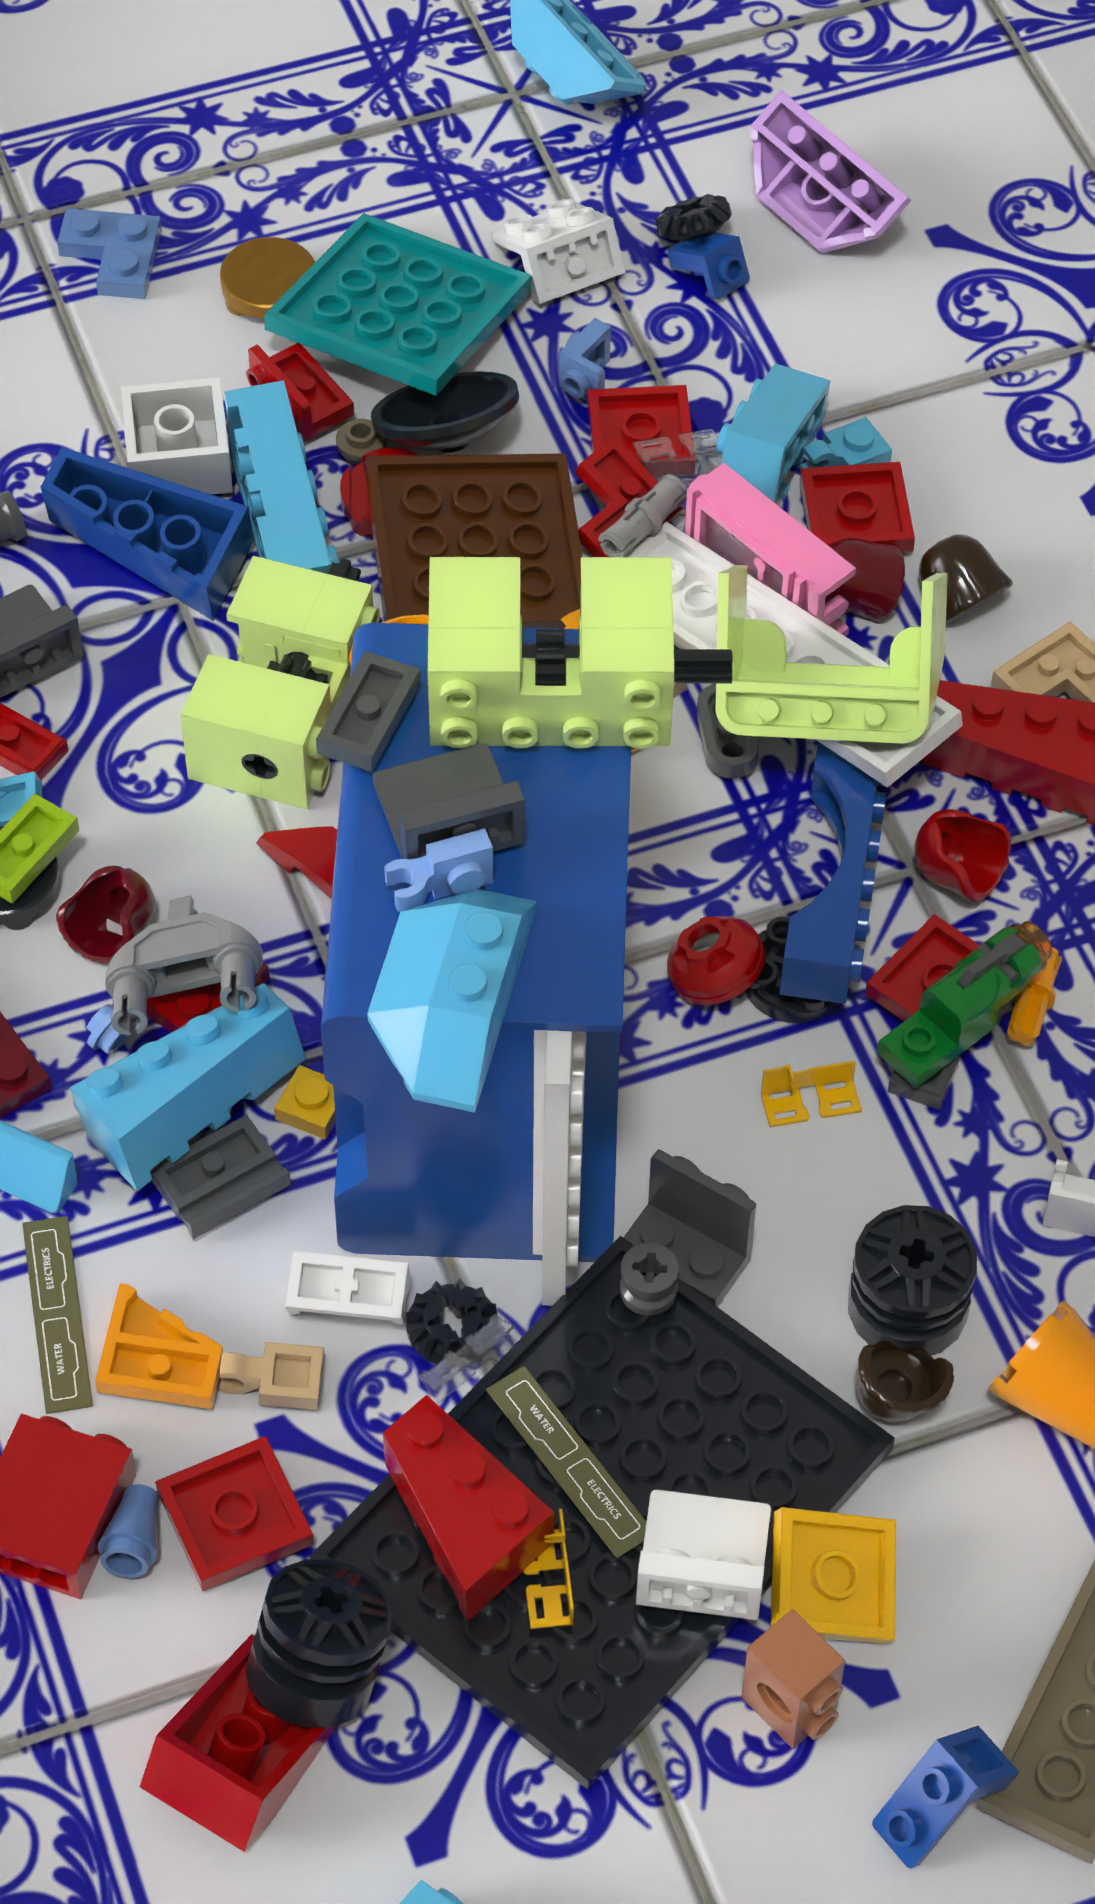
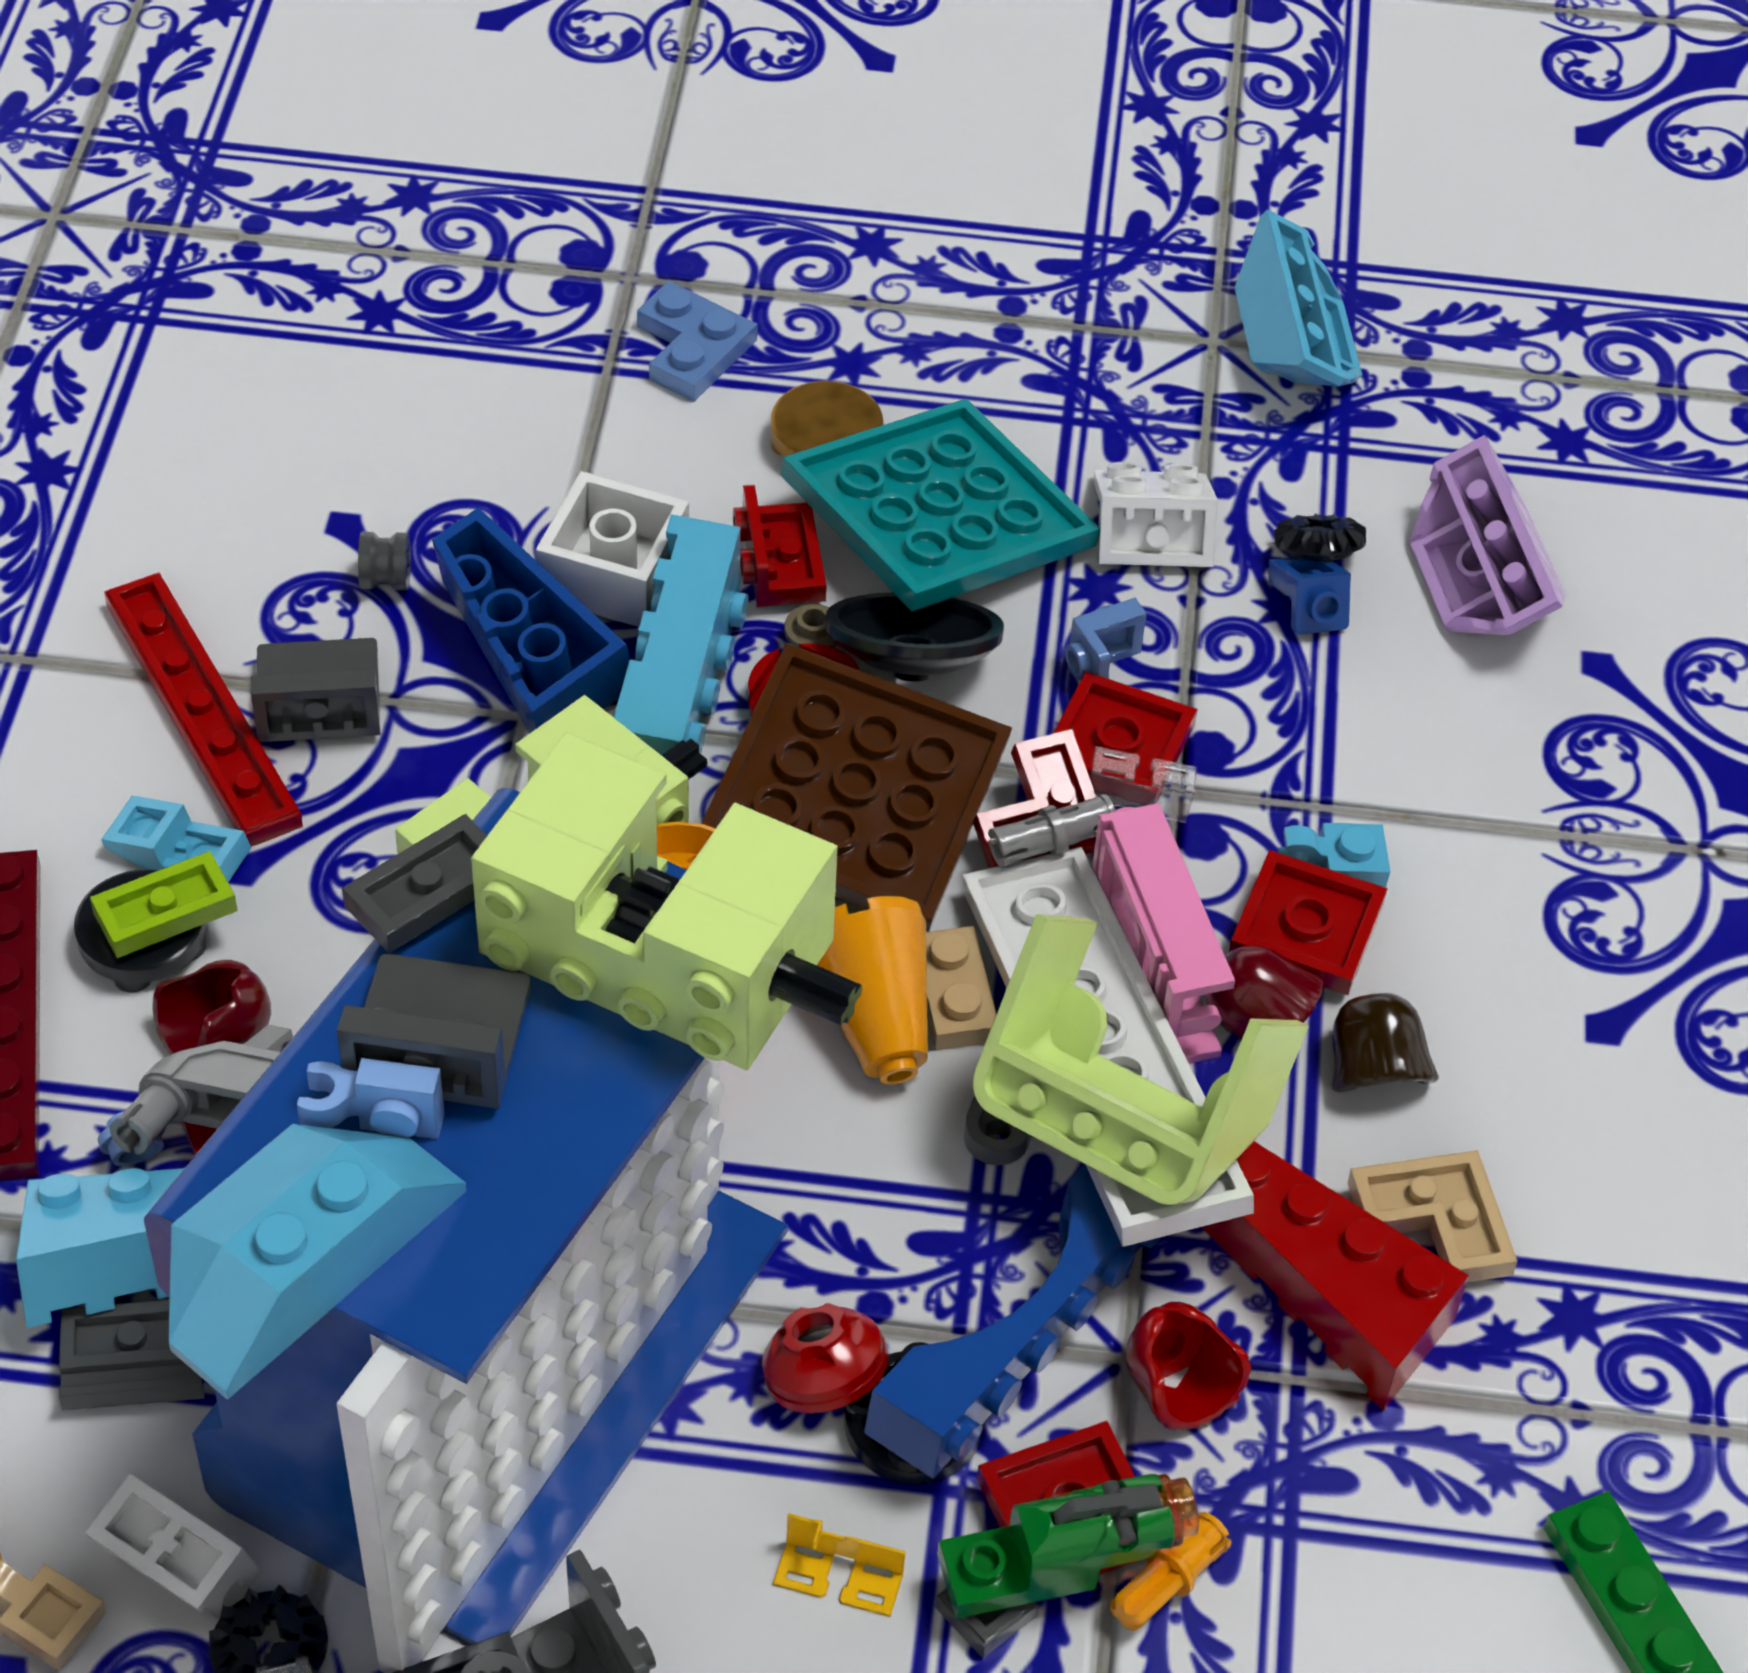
camera: 25 degrees right, 5 degrees down
(774, 428) = (1248, 796): medium azure wedge -> none

